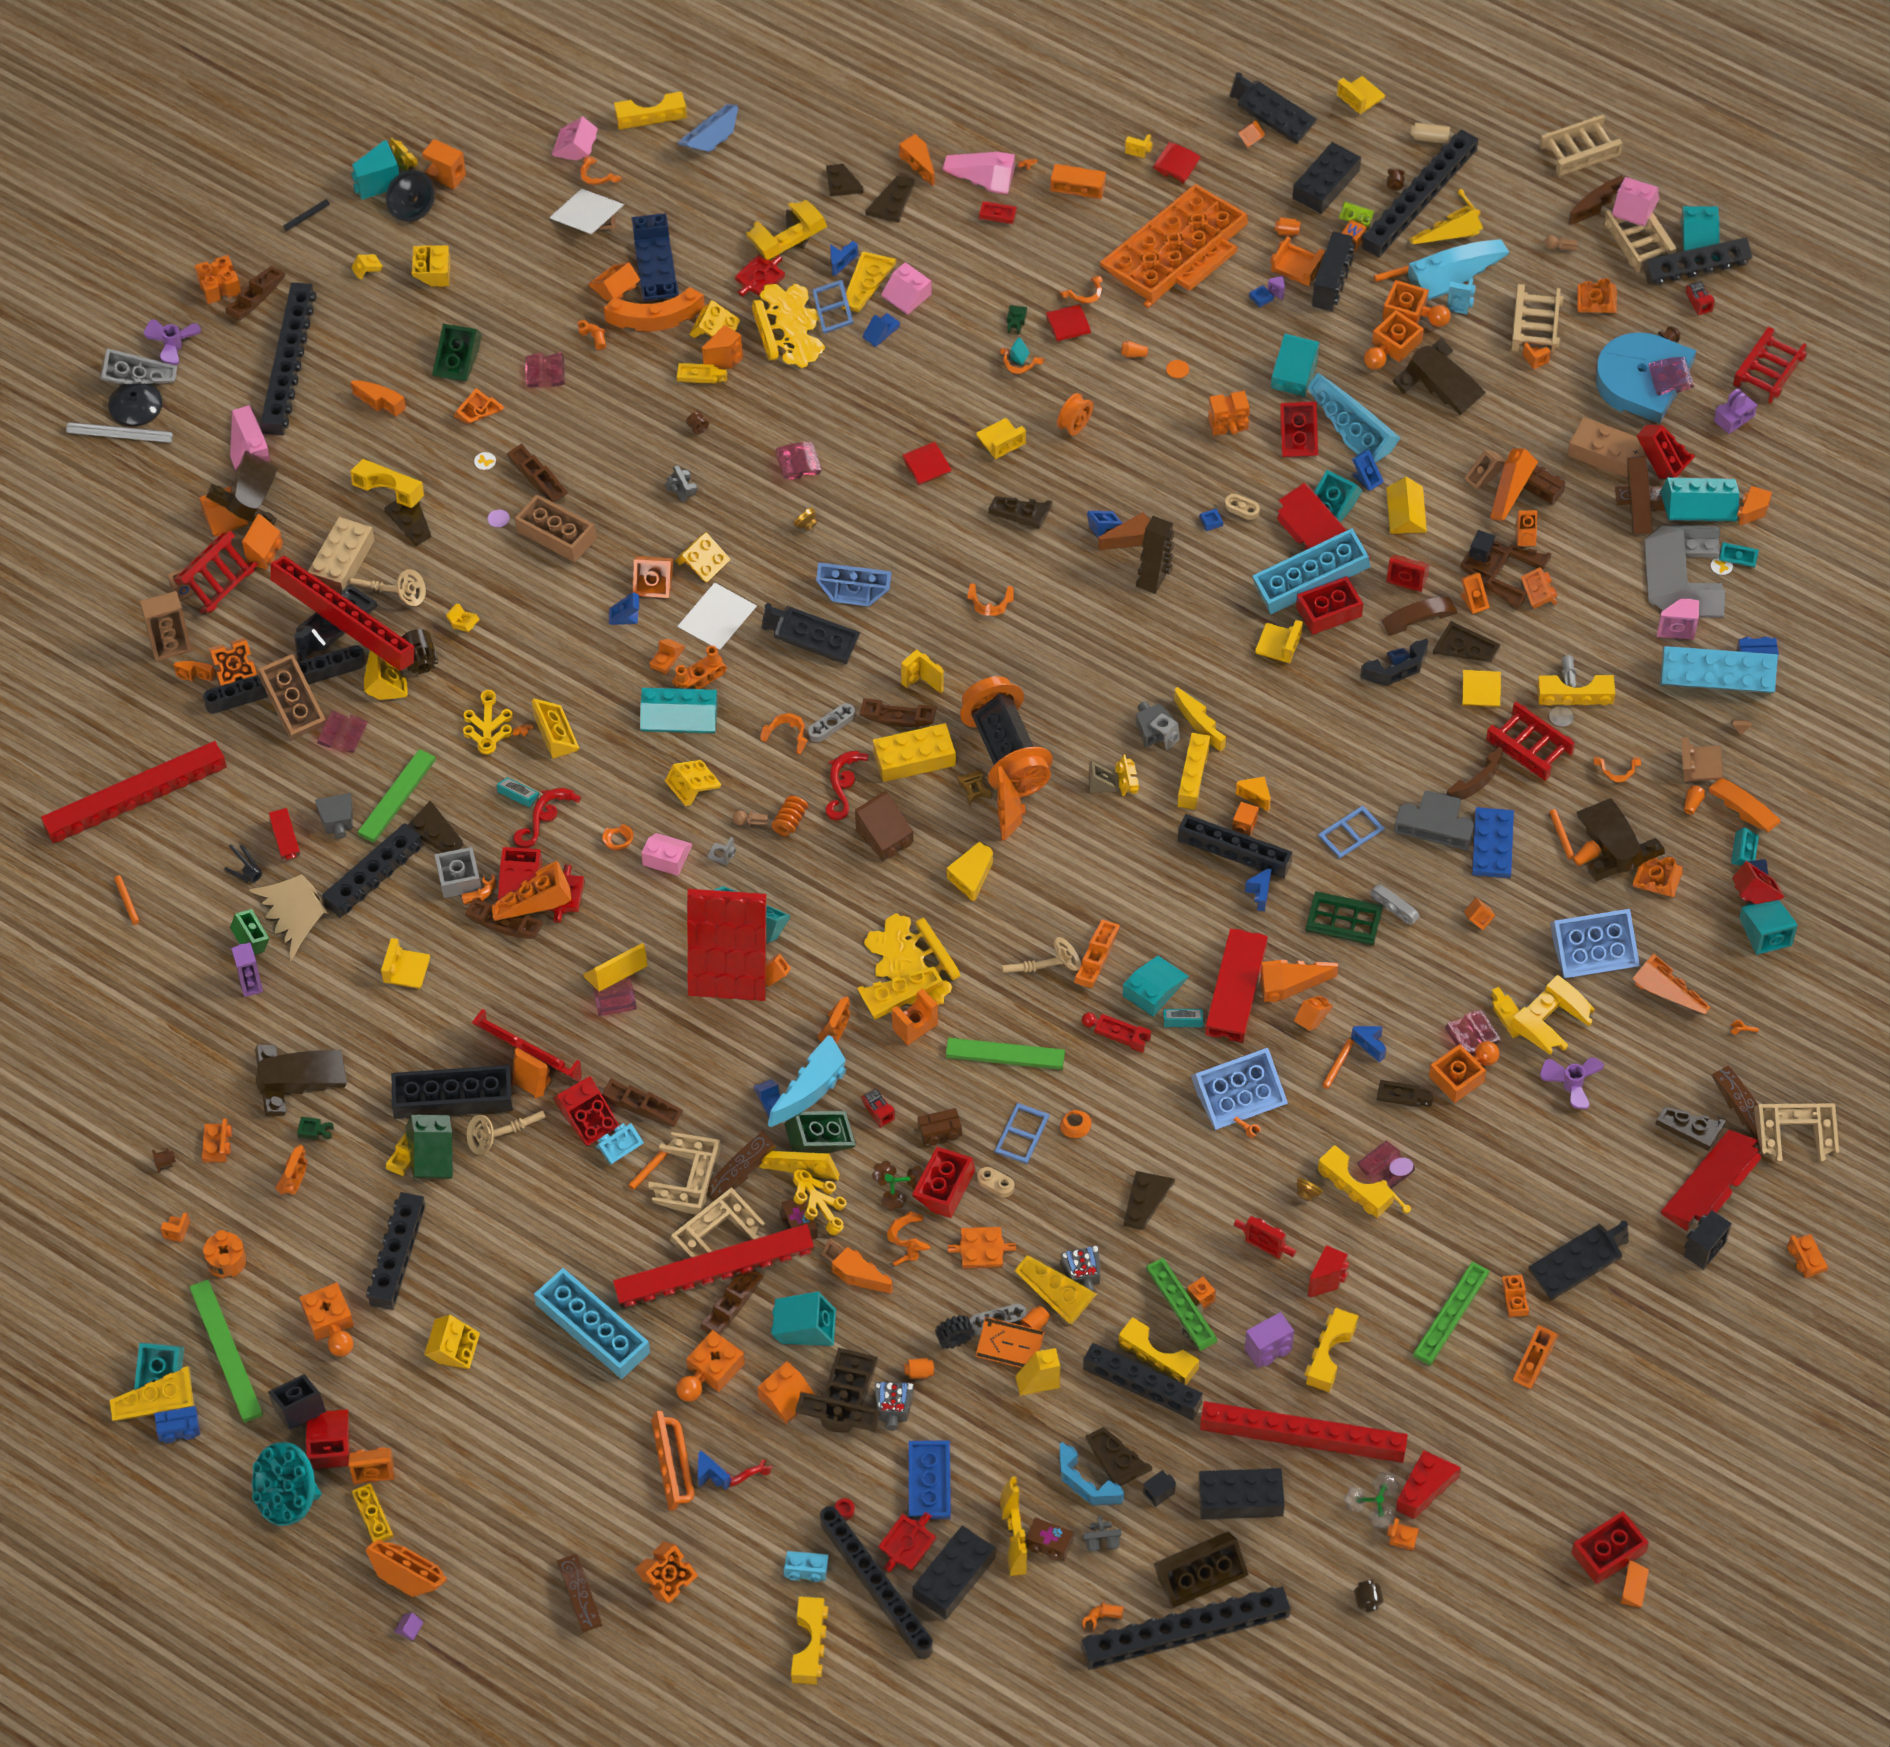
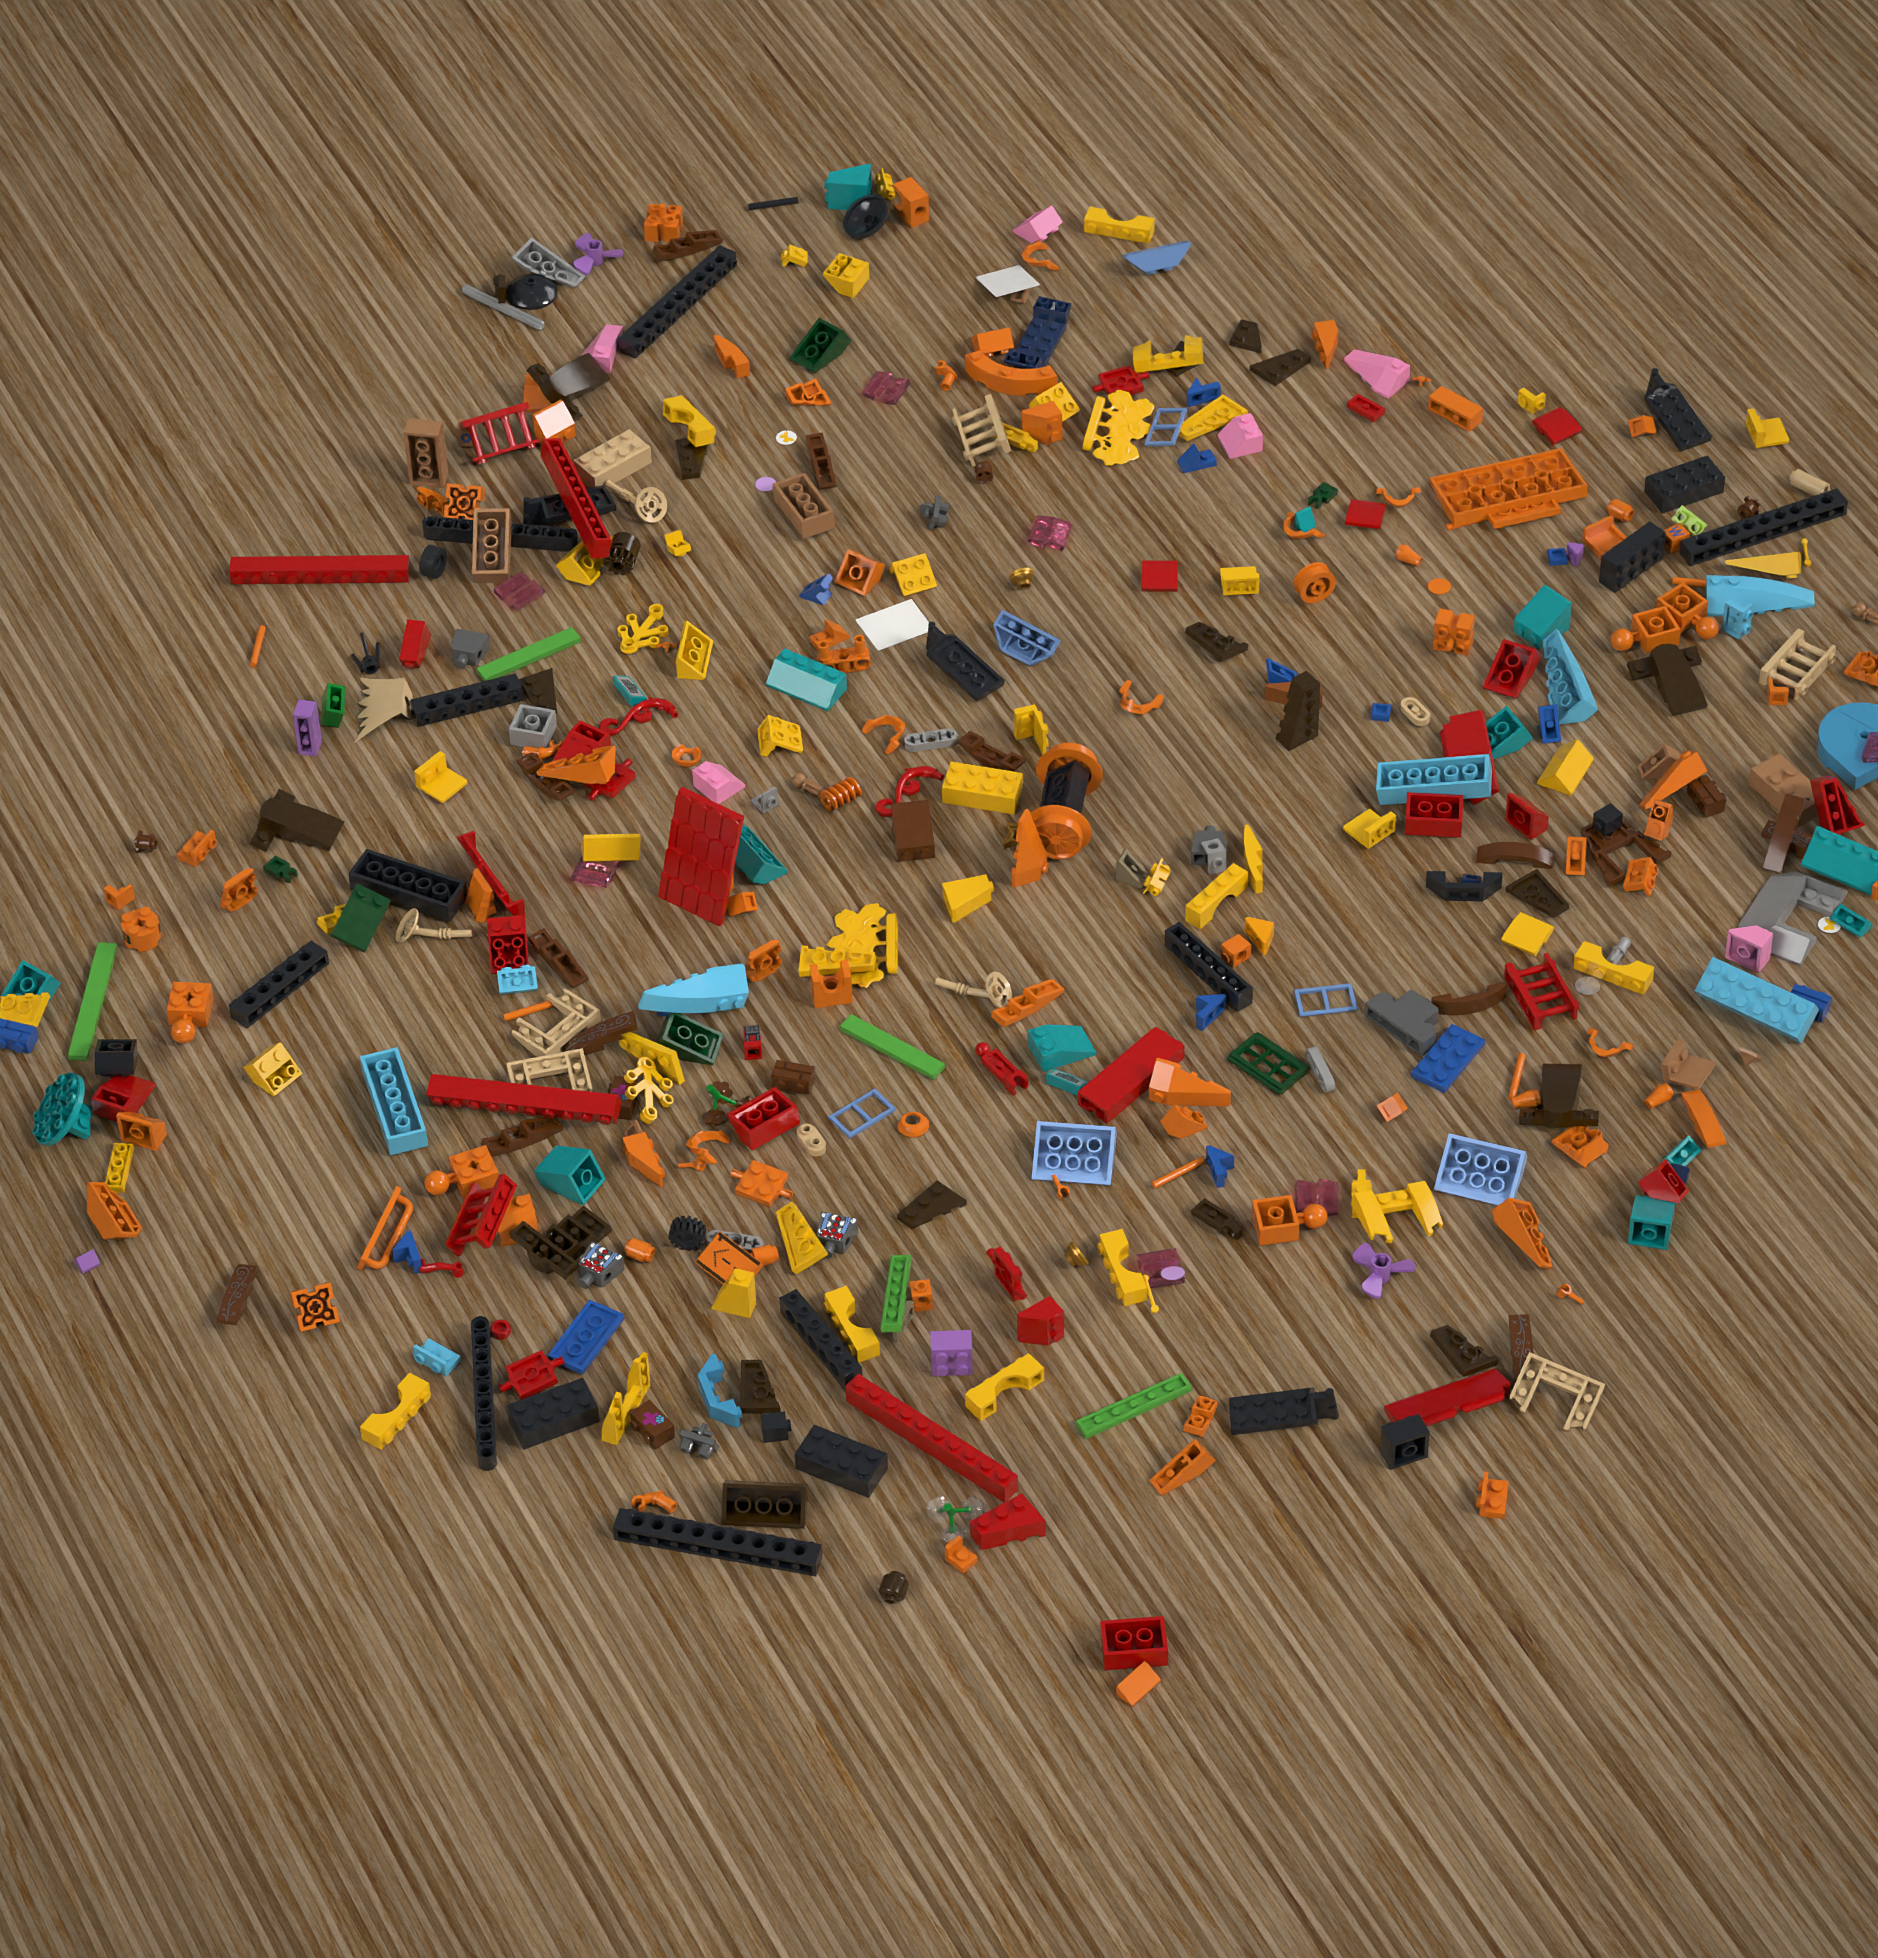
camera: 30 degrees right, 10 degrees down
(106, 412) = (500, 287): none -> dark brown hinge
(242, 737) = (433, 561): none -> black tyre
(674, 363) = (997, 429): none -> tan fence
(774, 1405) = (490, 1219): none -> red fence

